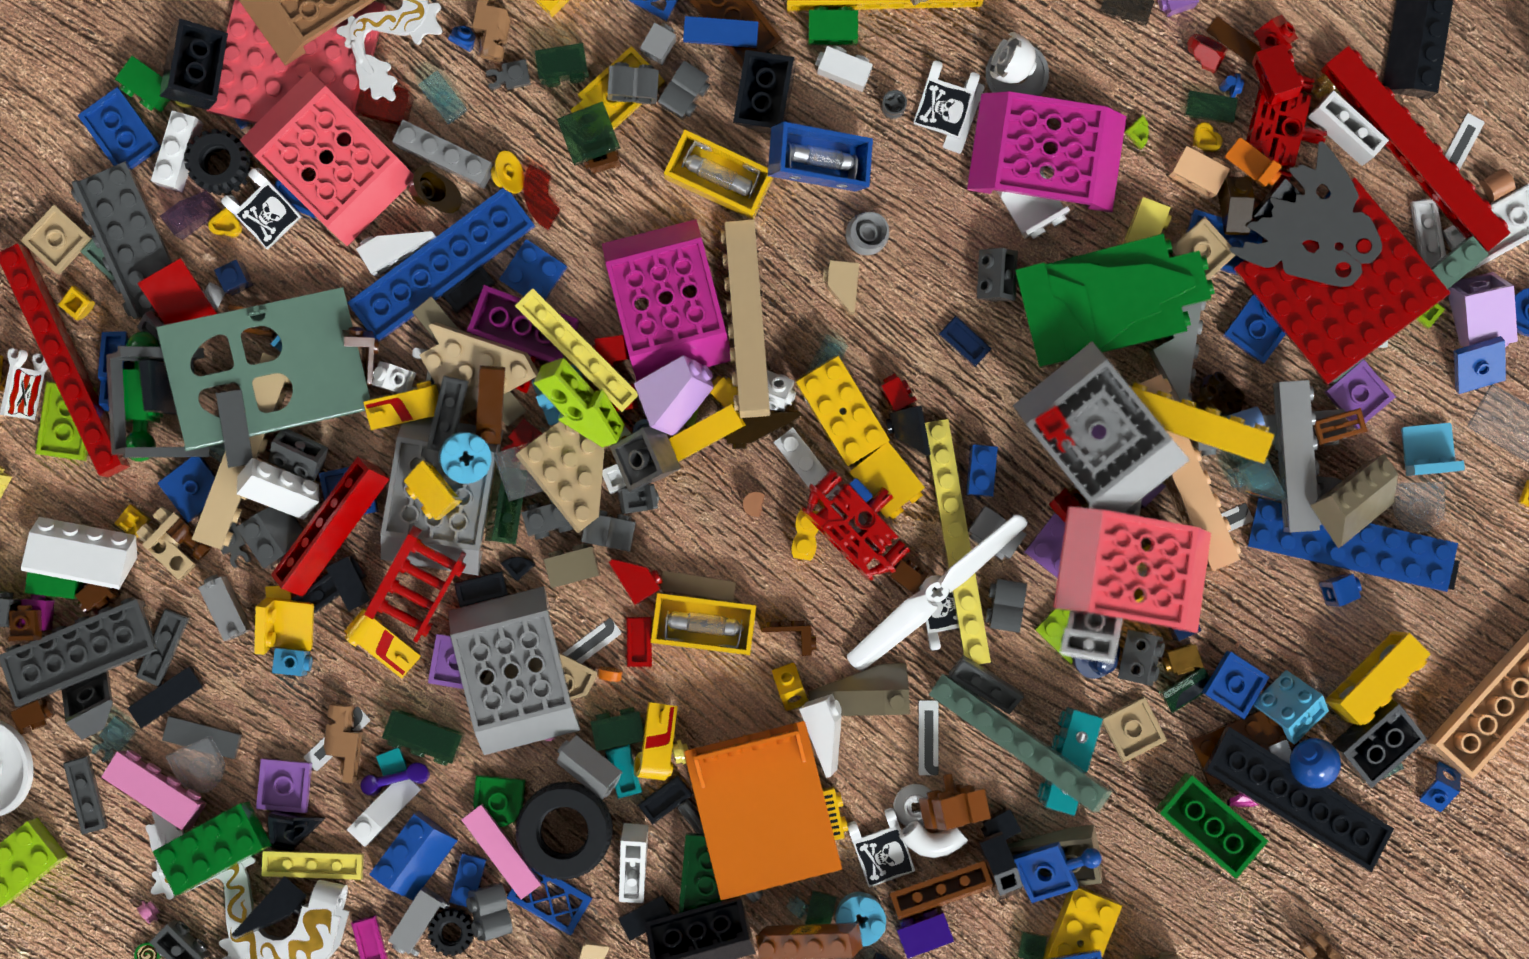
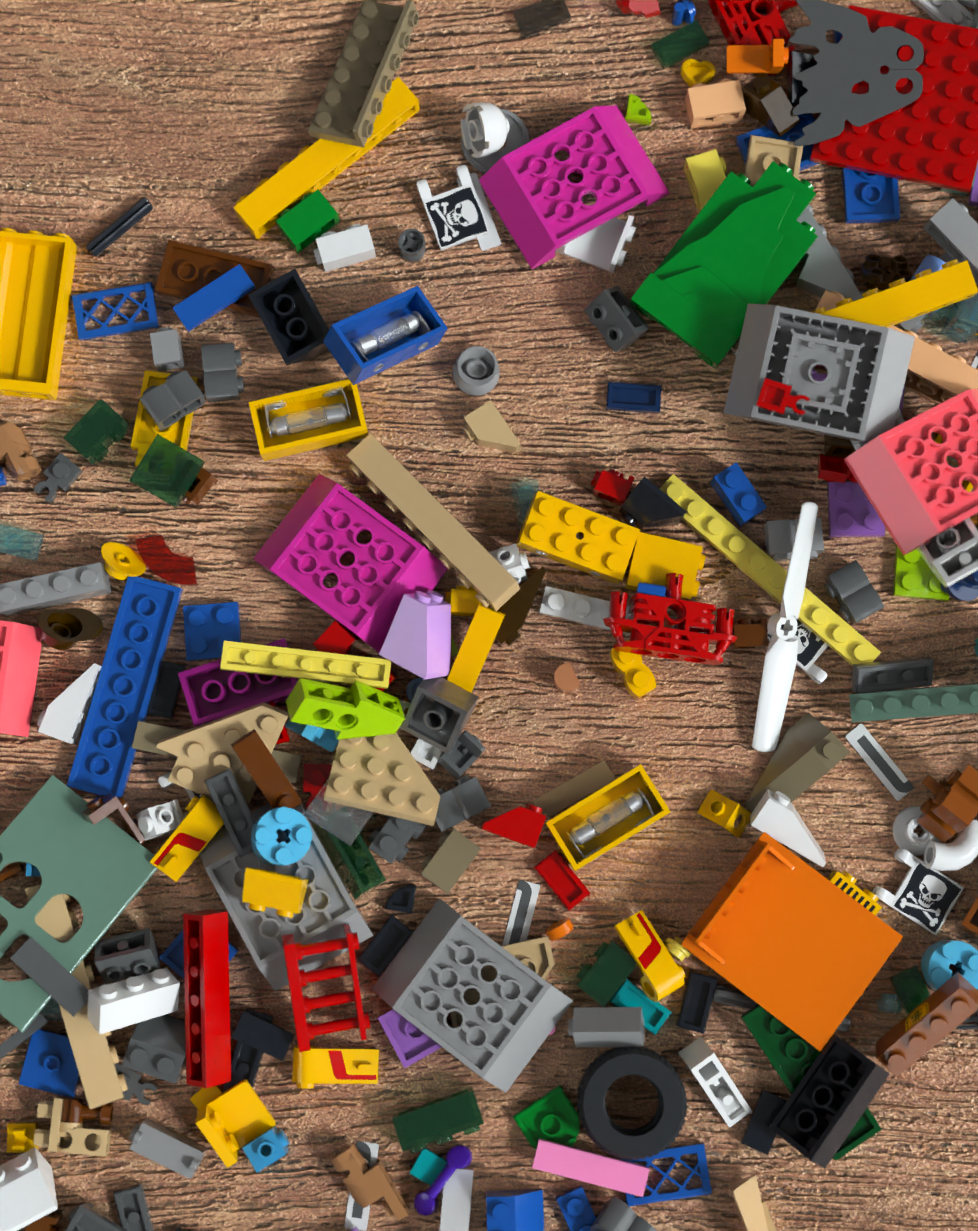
camera: 40 degrees left, 5 degrees down
(808, 641) = (708, 760): reddish brown bracket -> none

